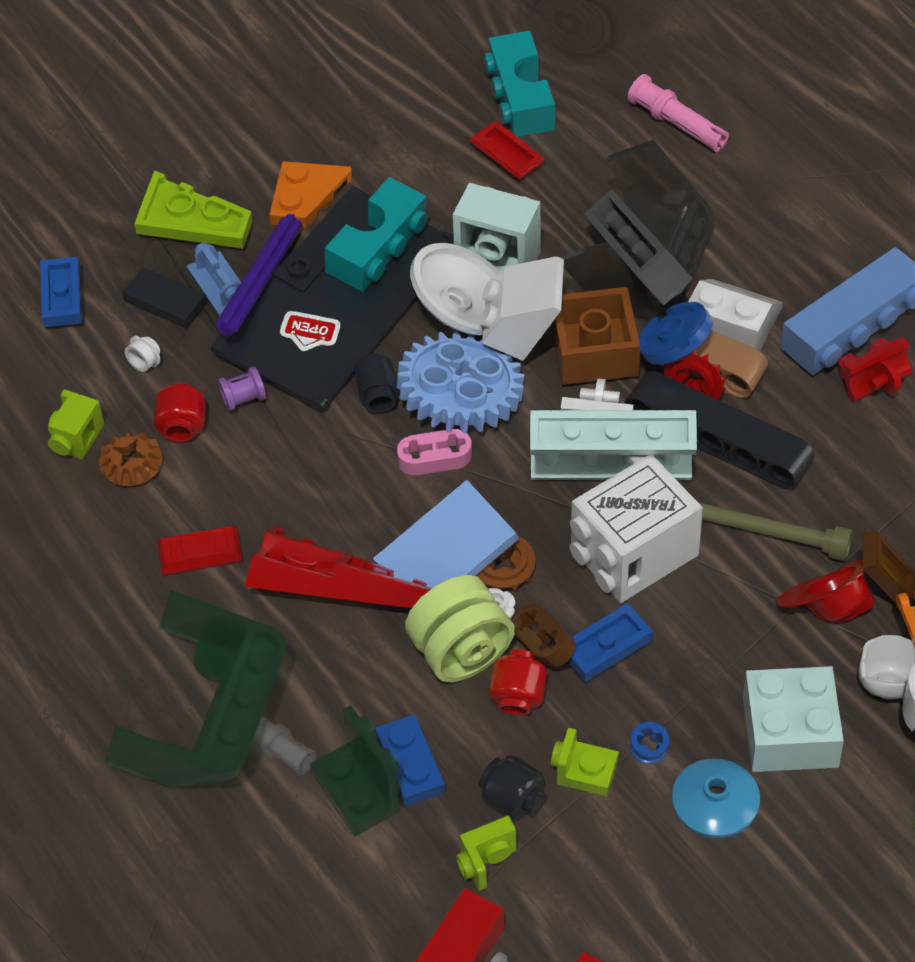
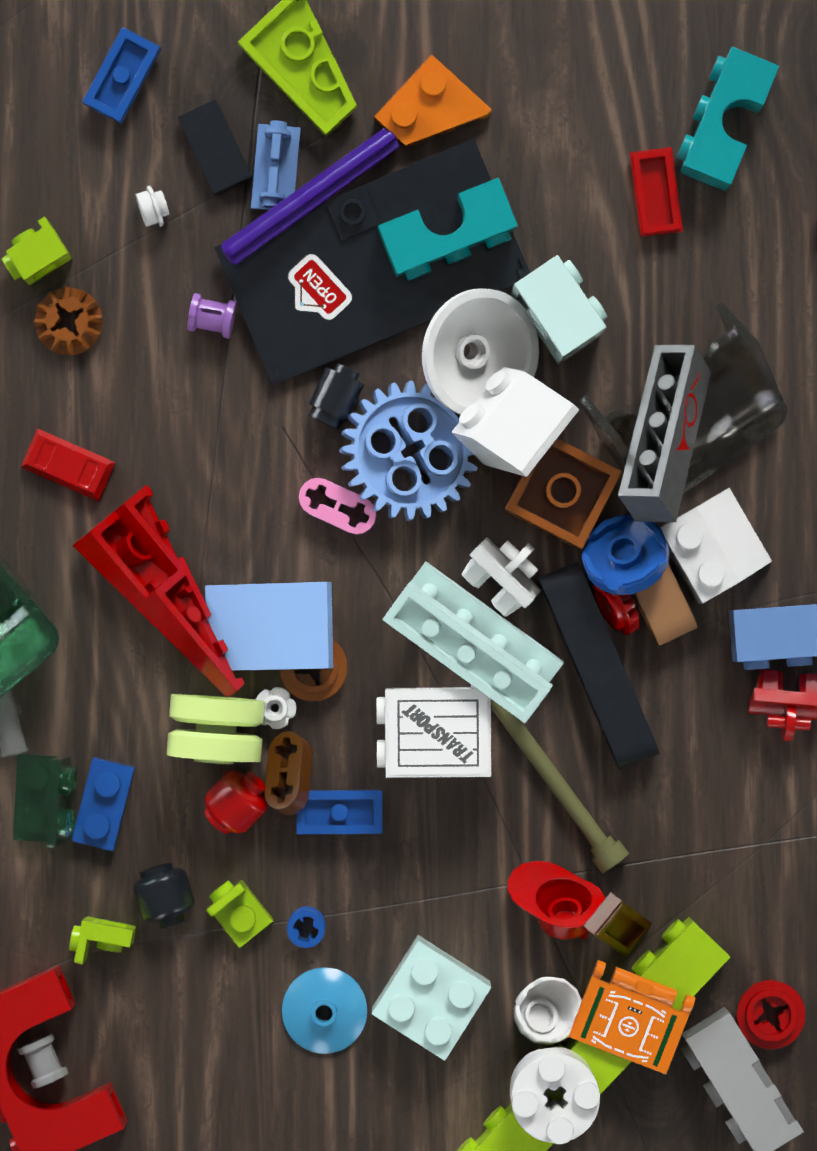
camera: 30 degrees right, 35 degrees up
(179, 412) = (140, 303): red head -> none

